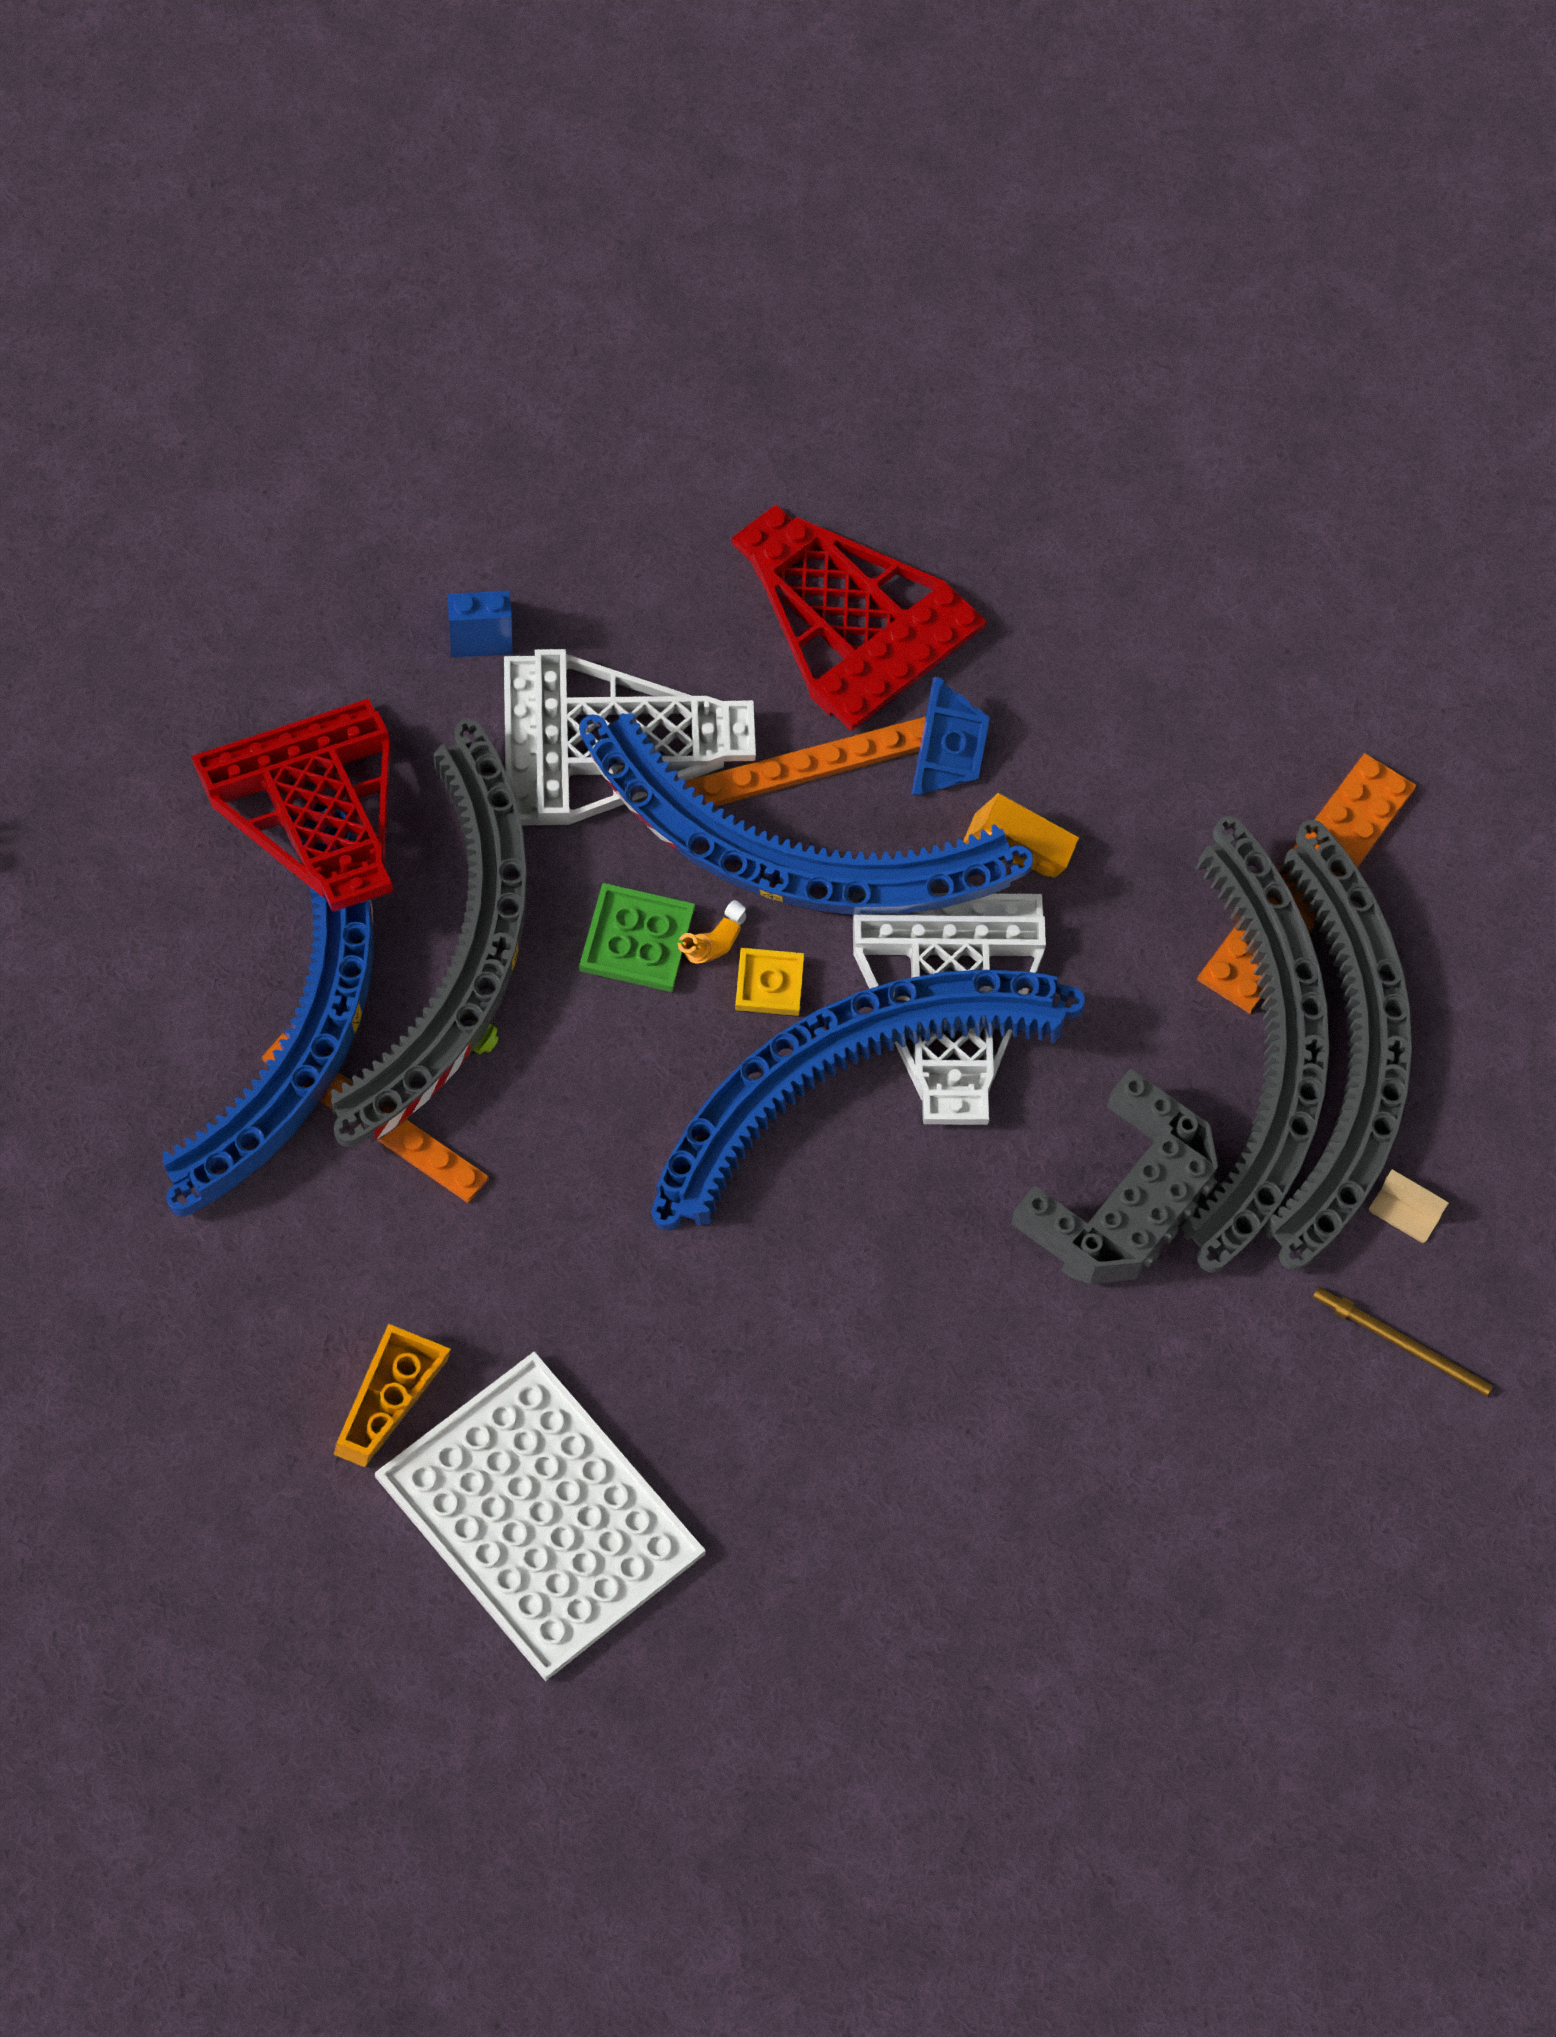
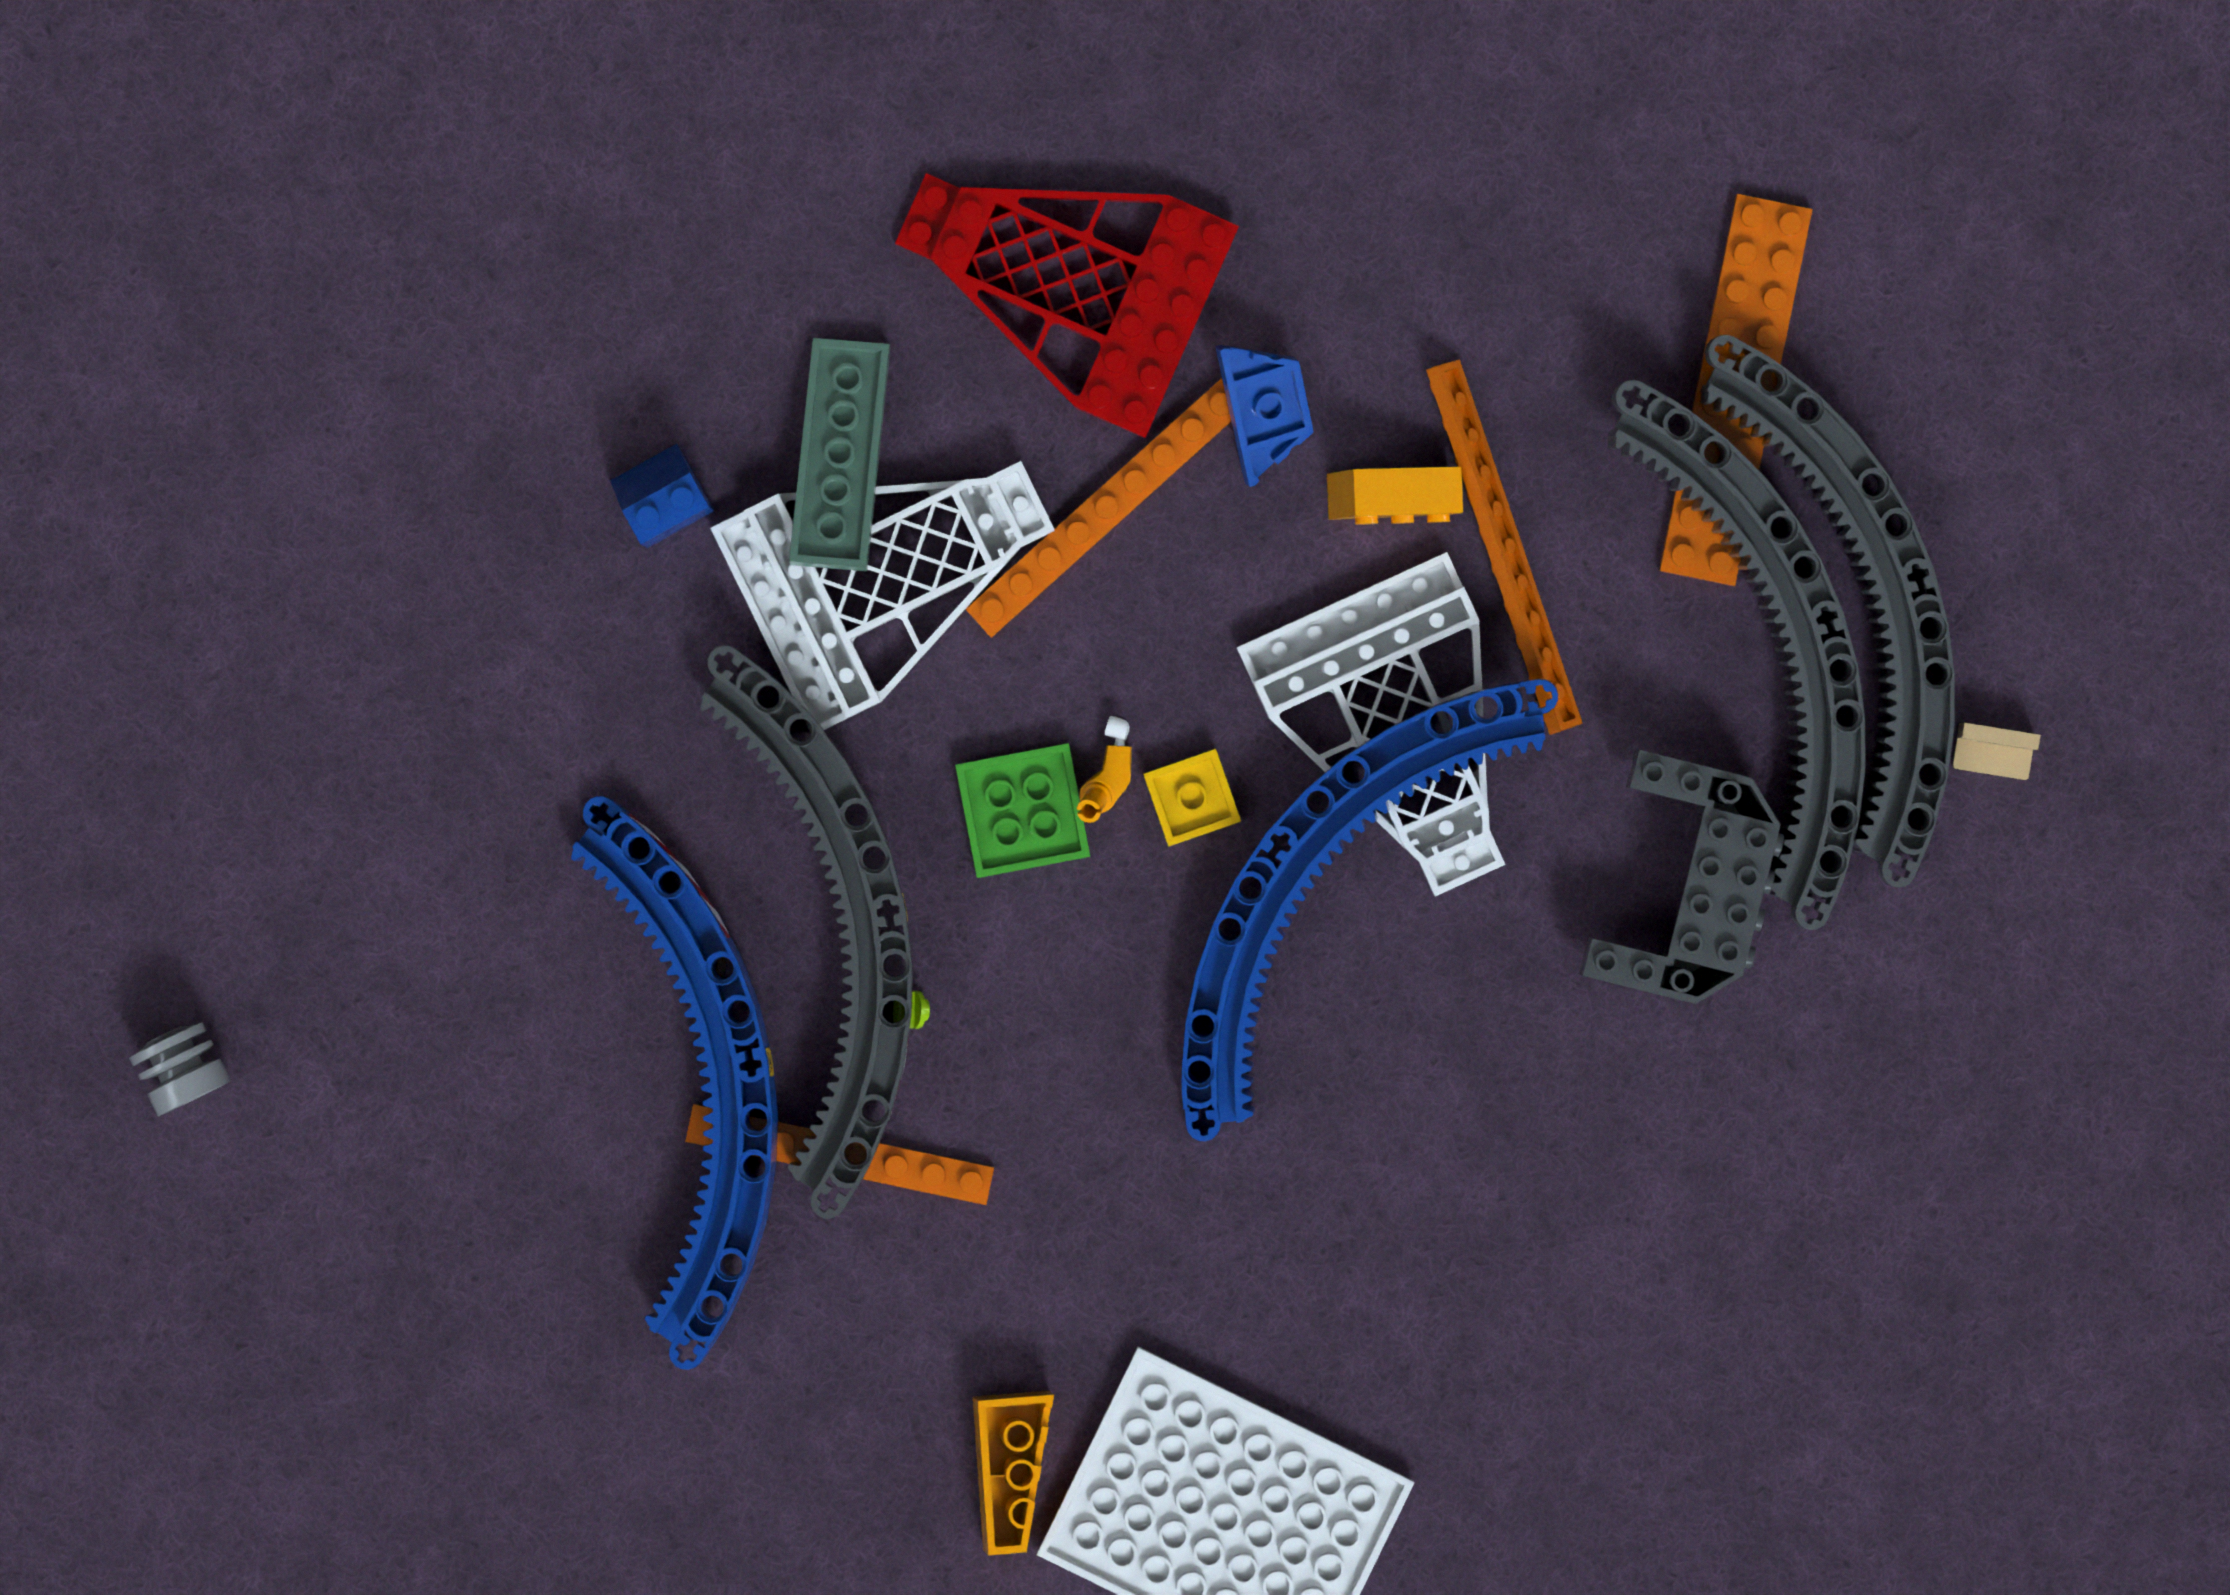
camera: 20 degrees left, 25 degrees up
(297, 753) = (532, 768): red wing -> none
(622, 644) = (839, 454): none -> sand green plate
(889, 884) = (1276, 635): blue gear -> none
(1087, 907) = (1502, 542): none -> orange plate
(1345, 1309) = (1972, 900): pearl gold bar -> none

